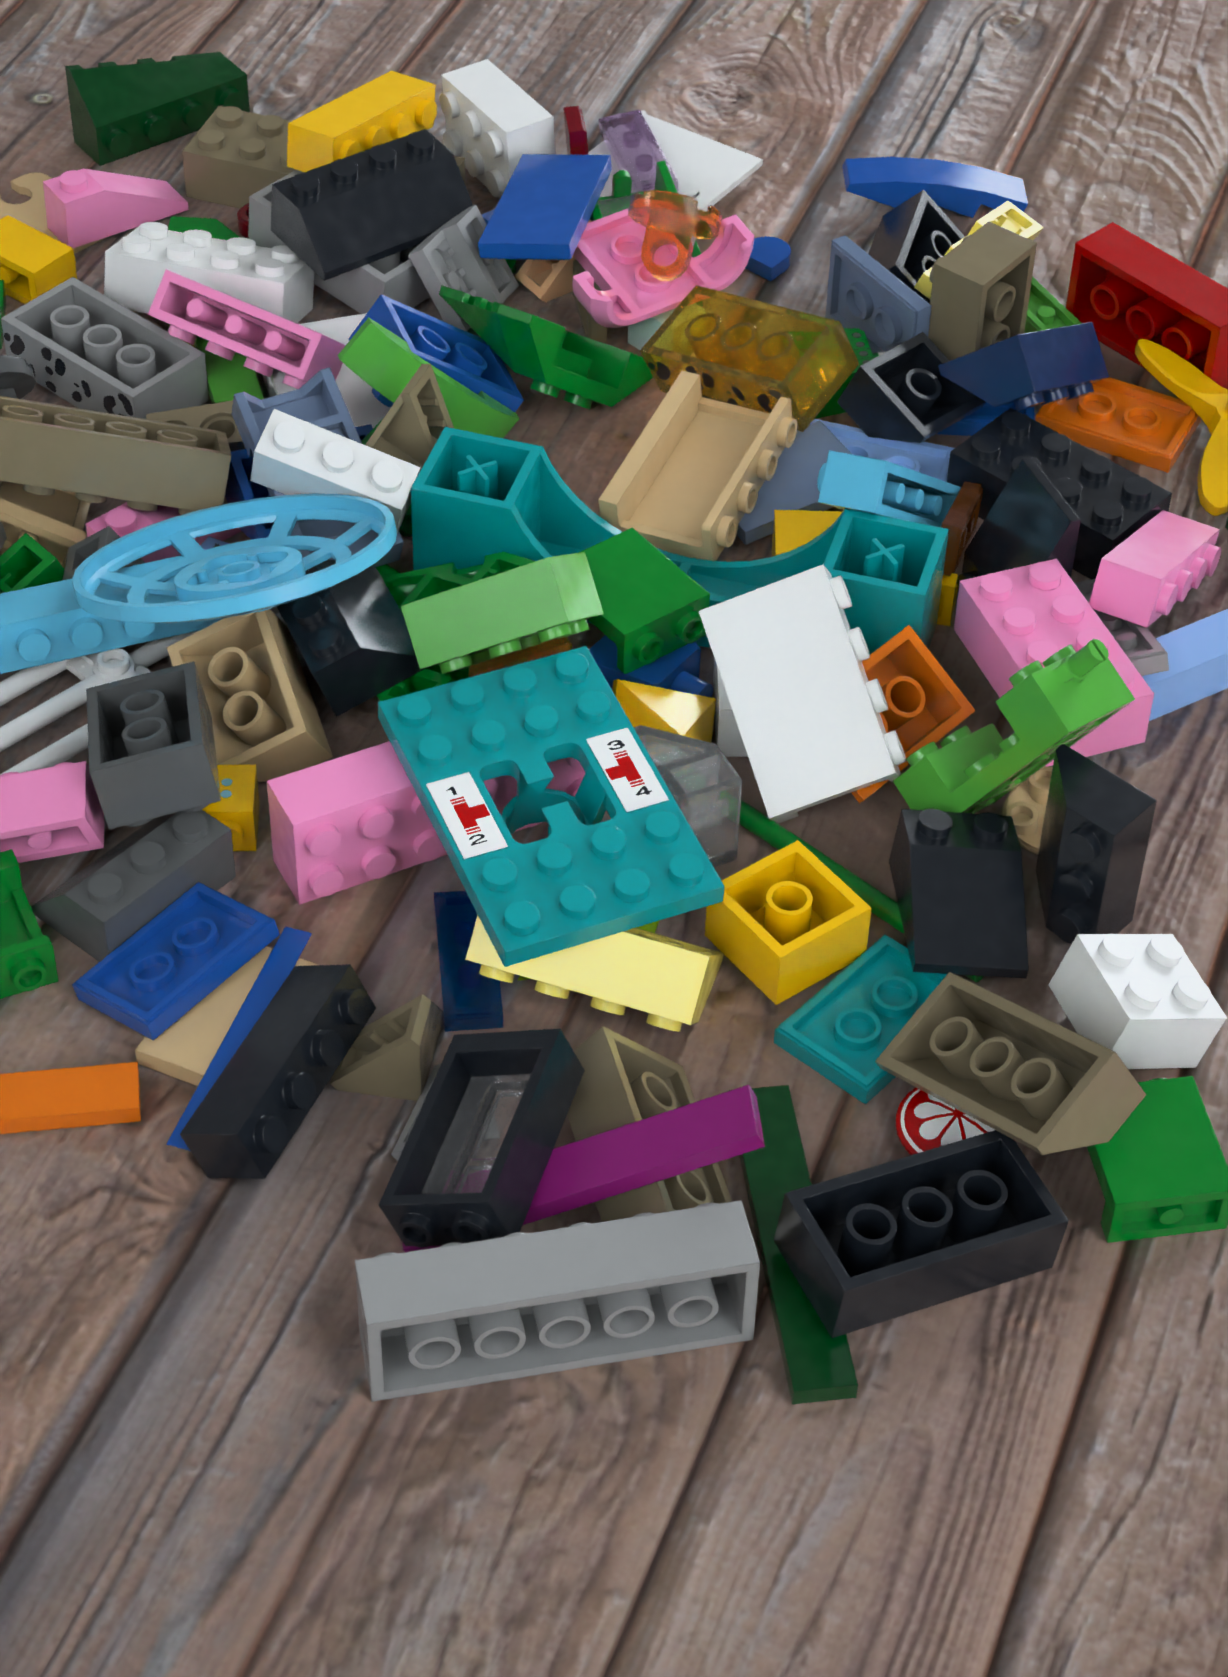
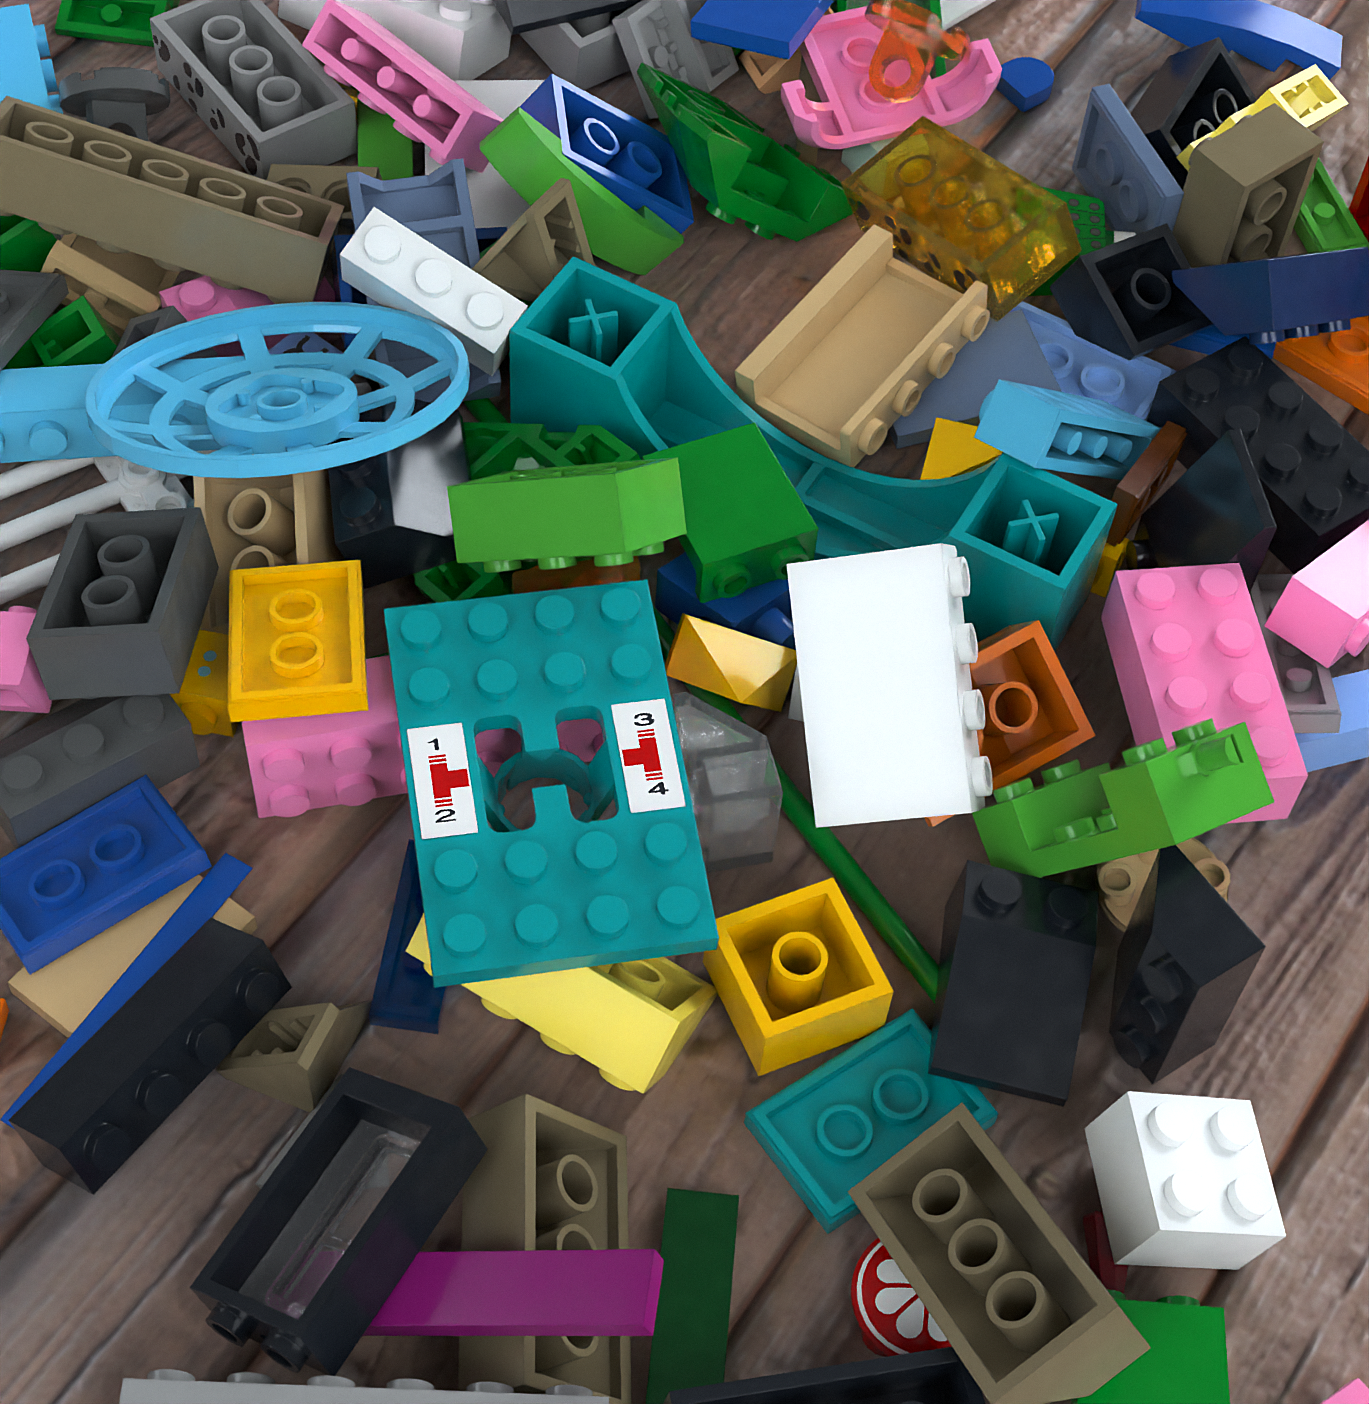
camera: 10 degrees right, 10 degrees up
(309, 742) = (296, 641): none -> yellow tile

